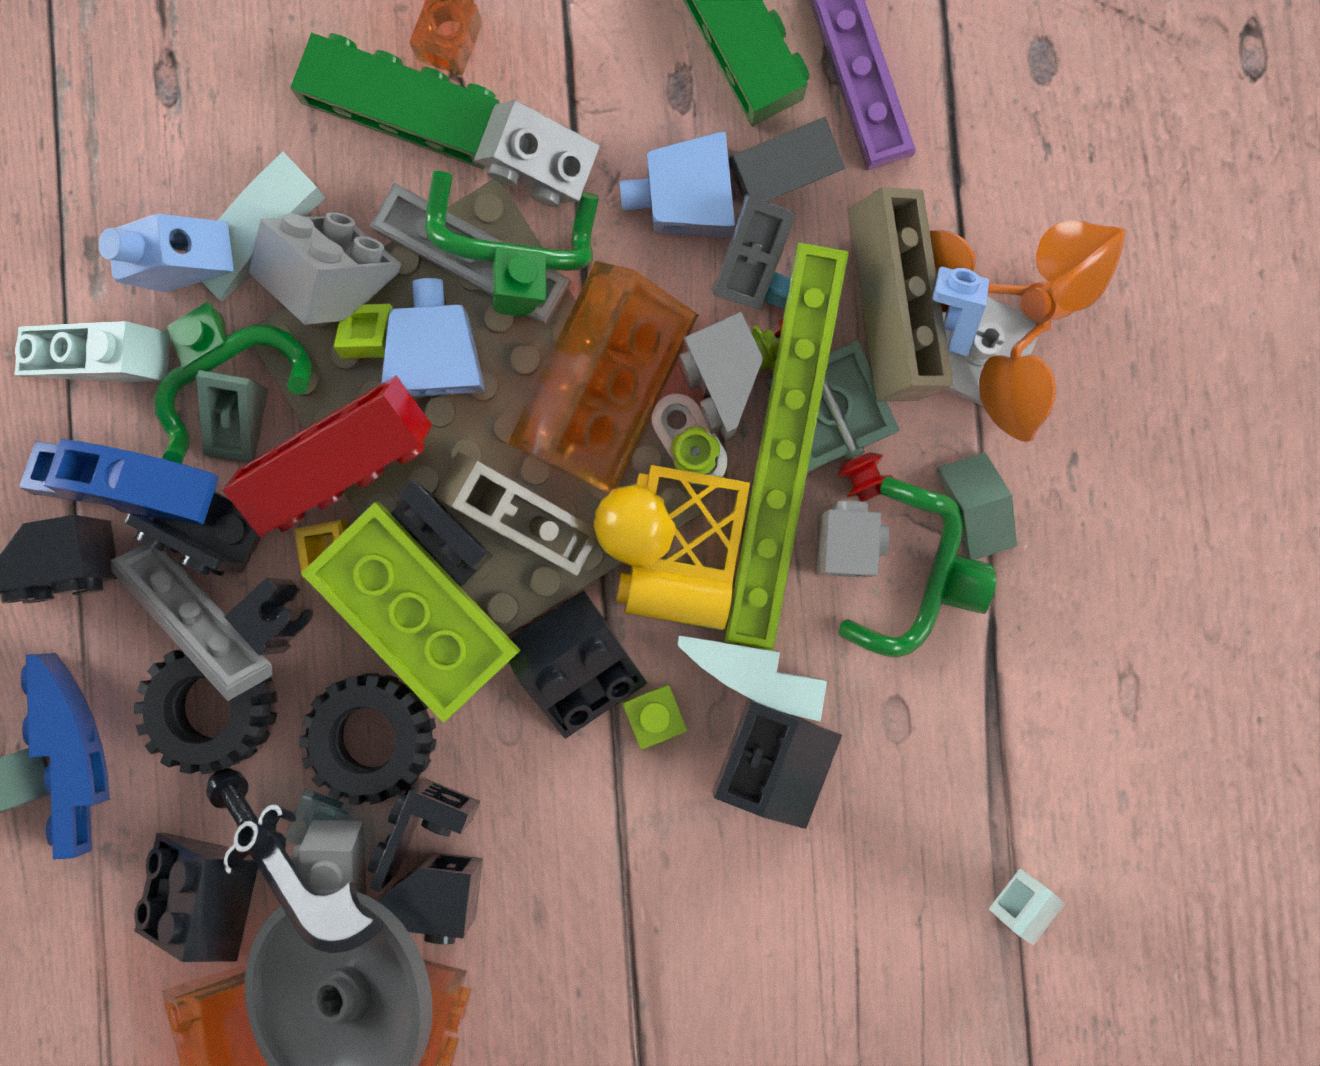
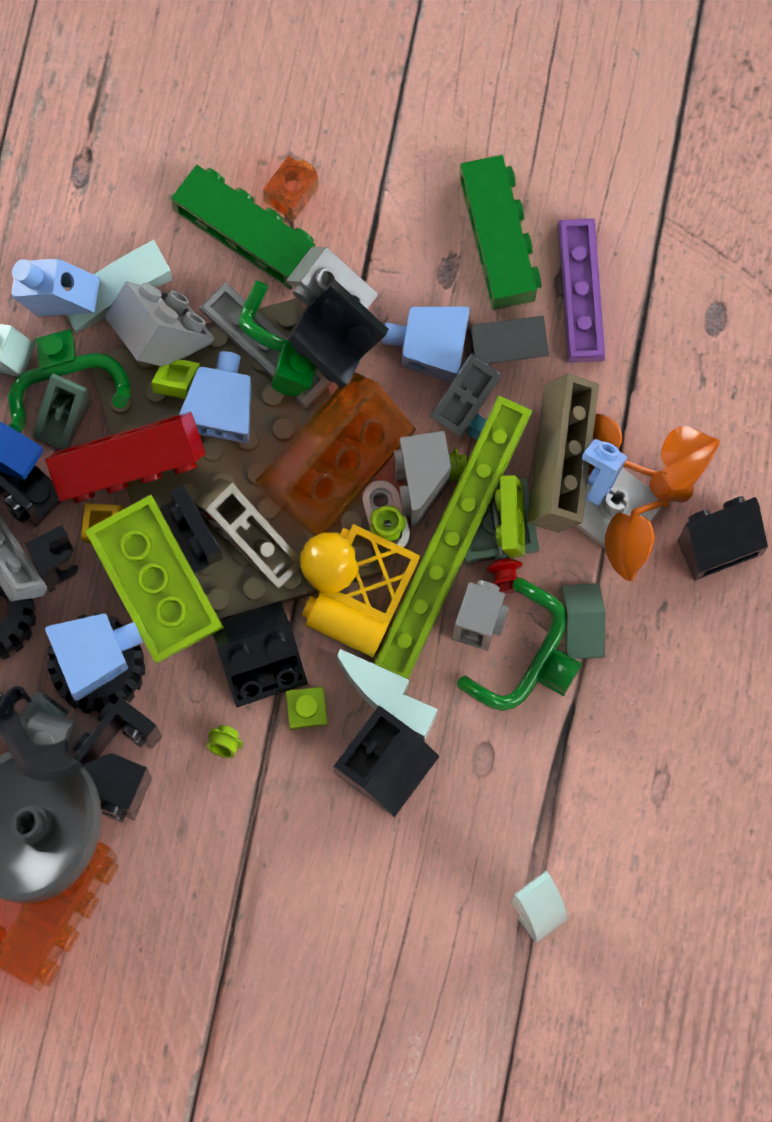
camera: 10 degrees right, 10 degrees down
(353, 739) = (91, 651): none -> light blue torso
(559, 216) = (336, 333): none -> black bracket
(561, 789) = (224, 741): none -> lime plate
(848, 379) = (511, 531): none -> lime plate
(1129, 360) = (723, 537): none -> black slope

